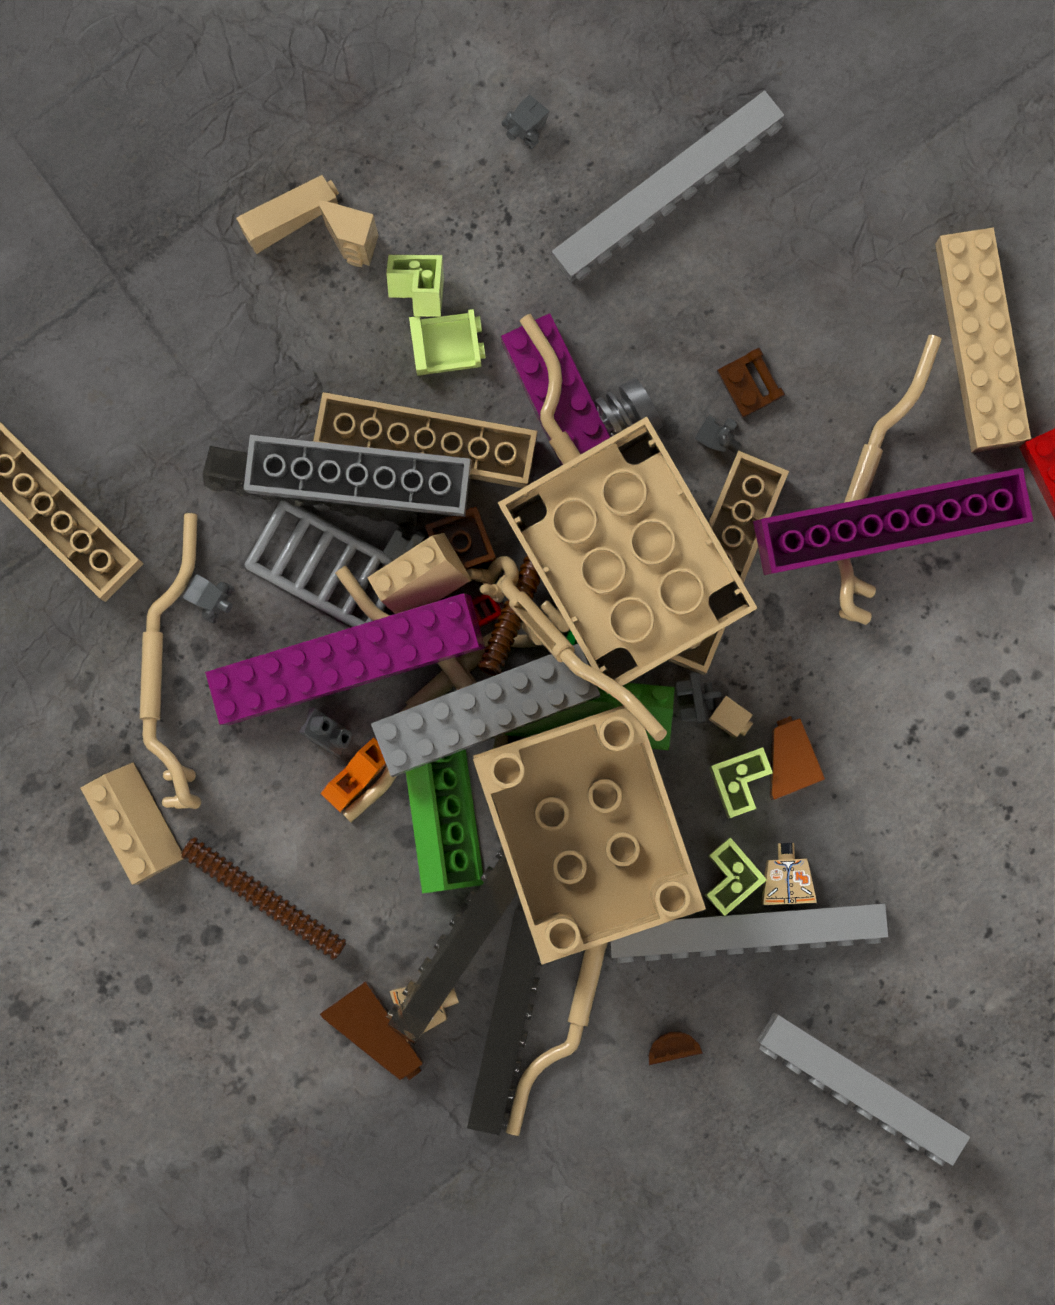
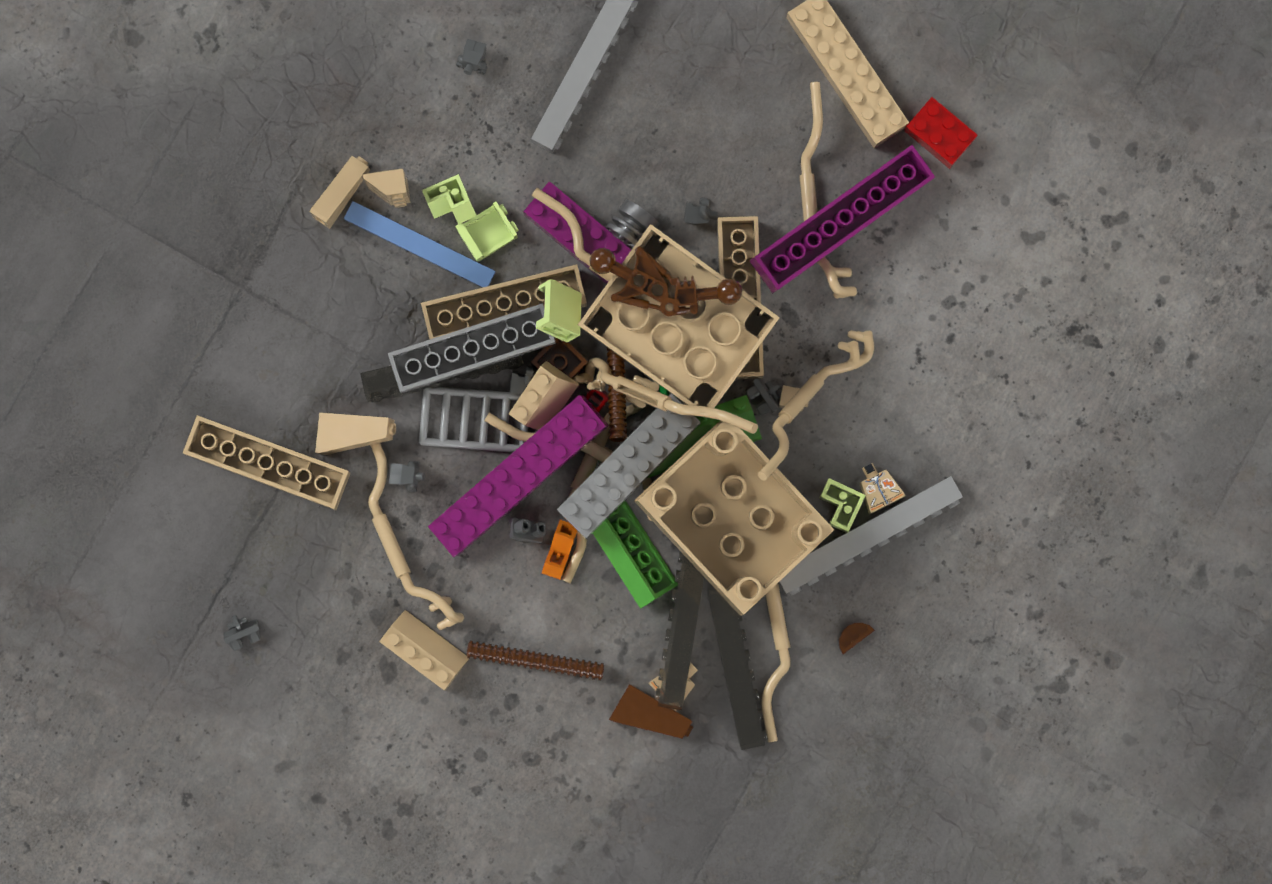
camera: 30 degrees left, 0 degrees up
(162, 512) = (349, 432): none -> tan slope
(356, 322) = (419, 245): none -> medium blue tile
(488, 478) = (561, 311): none -> yellowish green panel
(652, 524) = (686, 292): none -> reddish brown piece
(732, 780) = (812, 437): yellowish green brick -> none
(742, 386) = (701, 173): reddish brown plate -> none
(756, 716) = (810, 388): none -> tan piece
(792, 759) = (846, 407): dark orange slope -> none
(869, 1093) = (990, 604): light grey brick -> none

